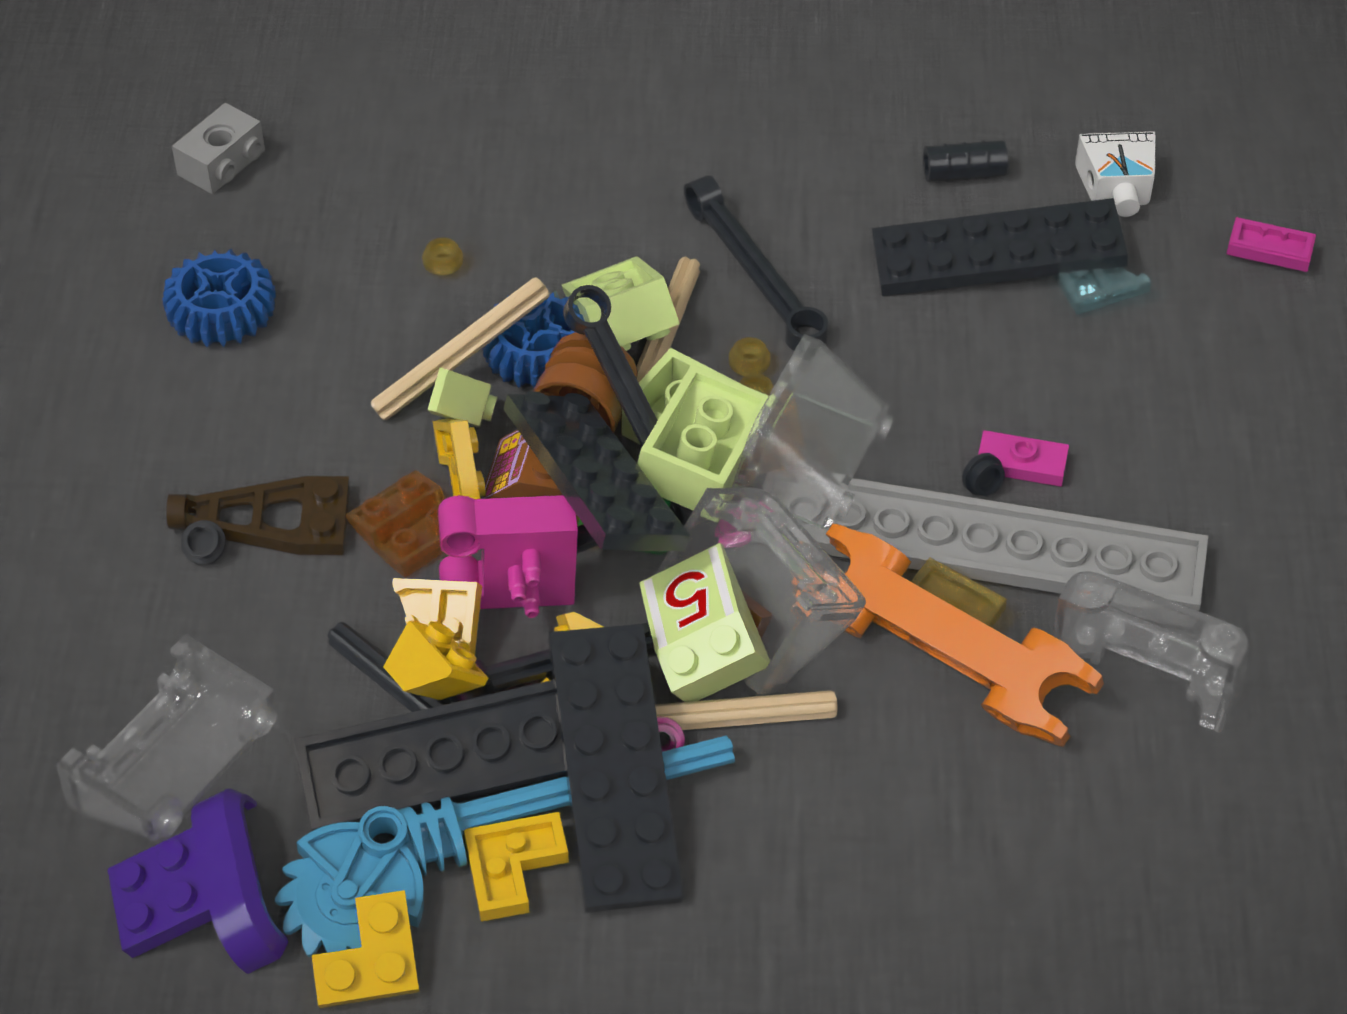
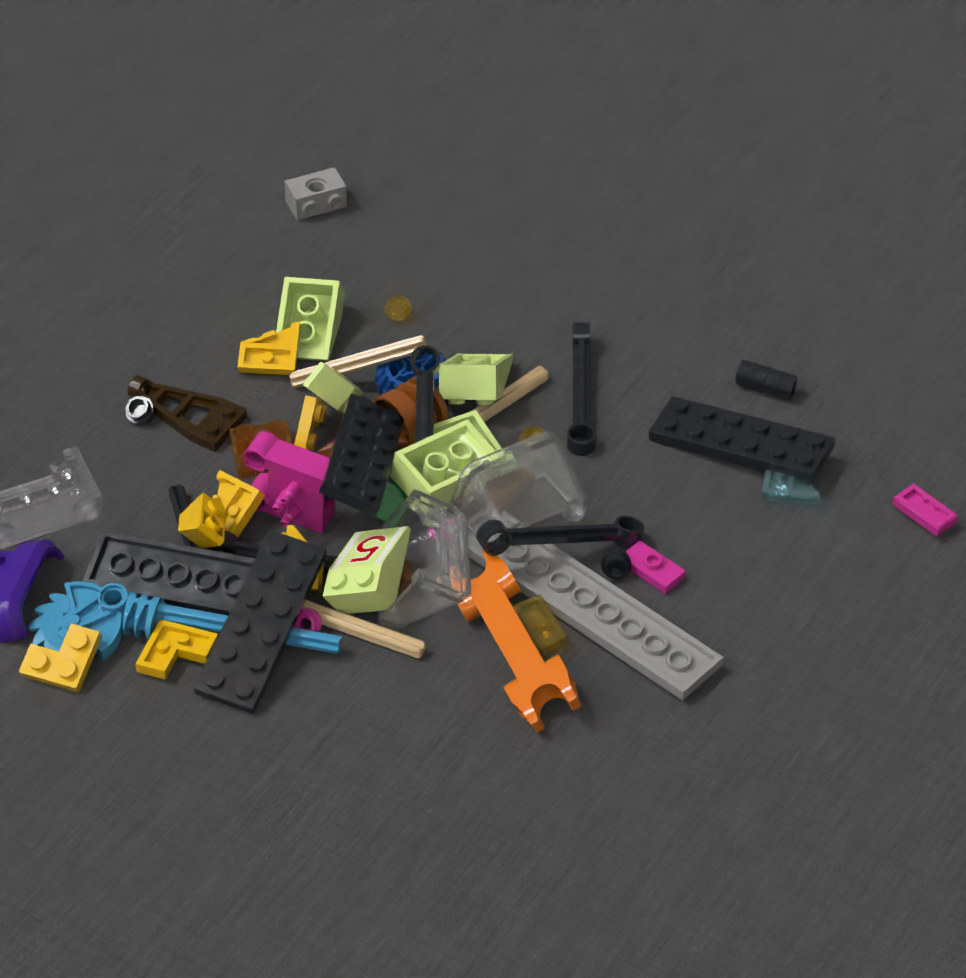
camera: 30 degrees right, 5 degrees down
(219, 297) = (249, 279): blue gear -> none
(325, 385) = (271, 352): none -> yellow wing
(341, 320) = (318, 309): none -> yellowish green slope
(846, 505) = (624, 532): none -> black piece
(1111, 615) = (605, 670): clear windscreen -> none
(1118, 168) = (864, 424): white torso -> none

